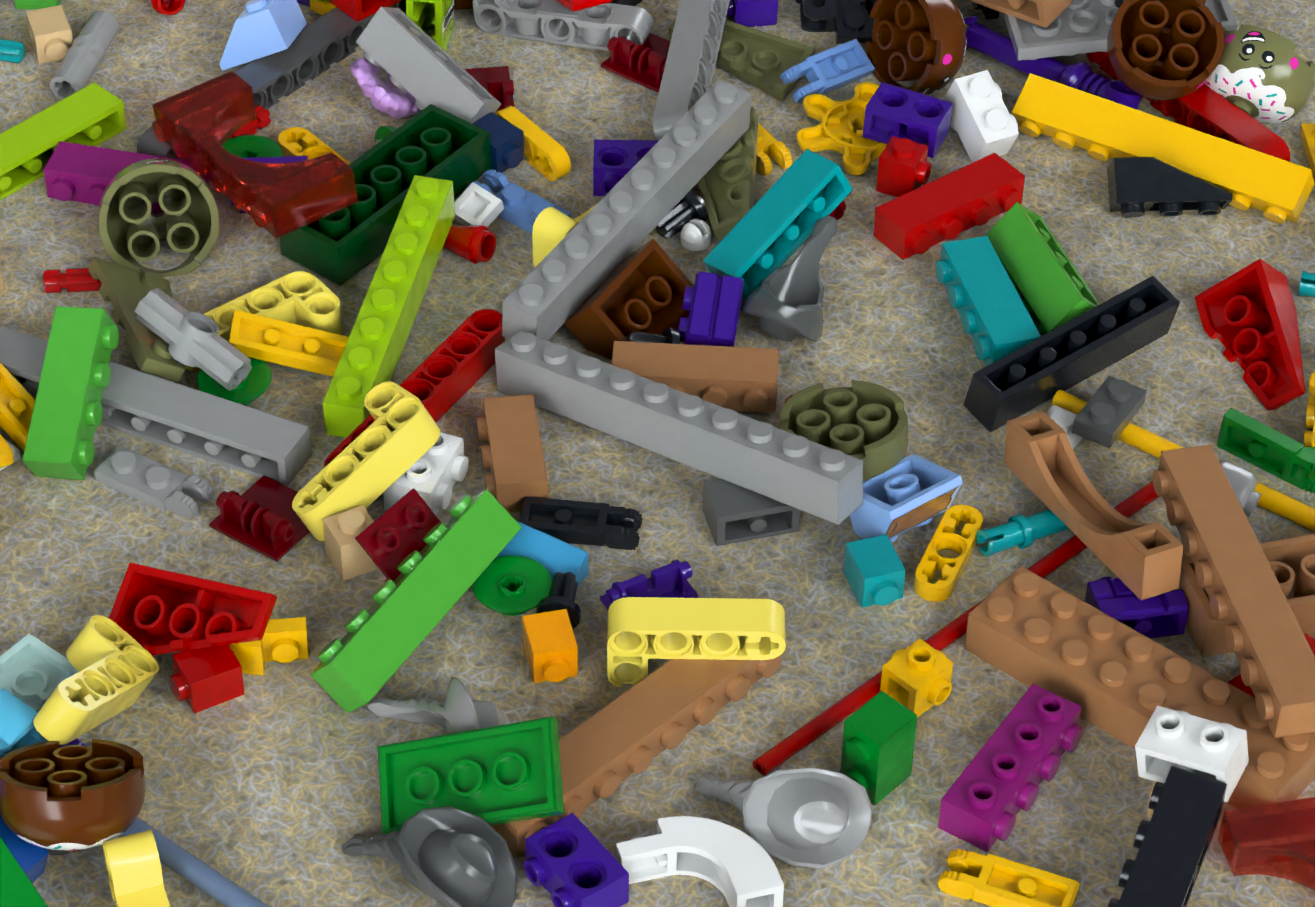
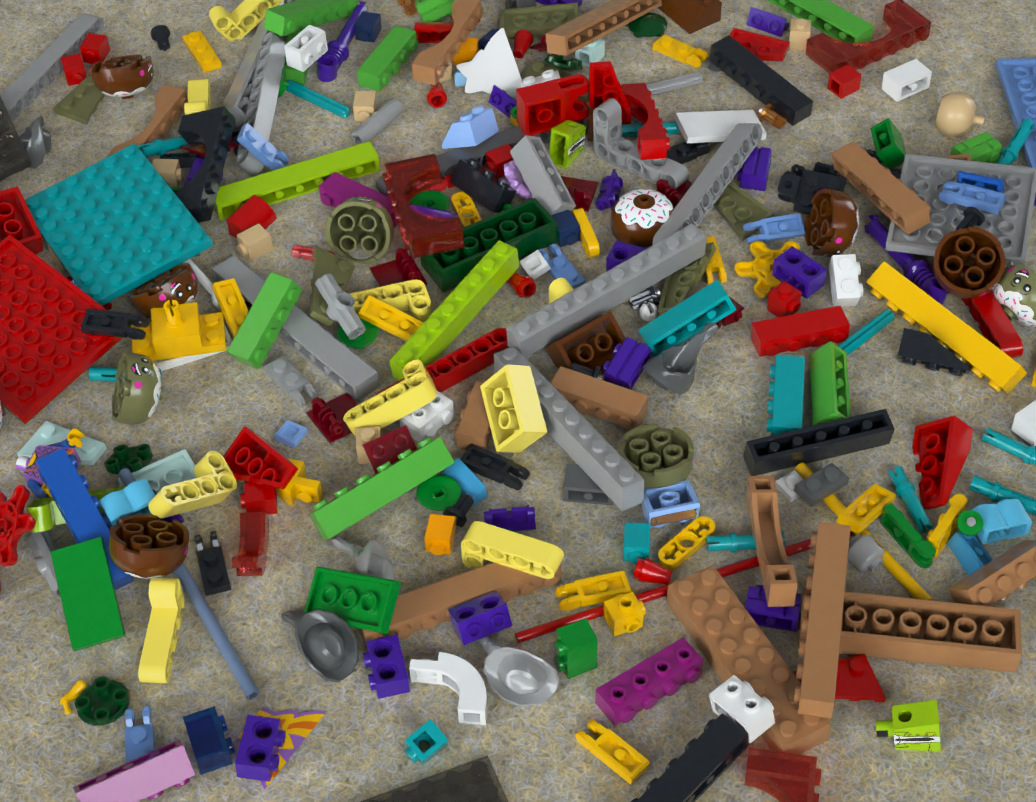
camera: 25 degrees right, 5 degrees up
(181, 807) = (212, 566): none -> black hinge
(201, 561) = (290, 433): none -> light blue tile
(235, 747) = (253, 544): none -> clear red arch
(247, 269) = (398, 270): none -> dark red hinge
(325, 107) = (482, 185): none -> black brick
(329, 67) = (497, 158): none -> red brick
(534, 76) = (609, 191): none -> dark purple hinge
(578, 419) = (513, 408): none -> light yellow brick
(610, 98) = (639, 216): none -> cylinder
(692, 749) = (480, 617): none -> dark purple brick
(844, 661) = (592, 590): none -> yellow hinge
(919, 608) = (651, 572): none -> red cone
(1049, 179) = (867, 331): none -> teal axle
(1196, 420) = (866, 508): none -> yellow plate
(1233, 390) = (906, 491): none -> teal pin

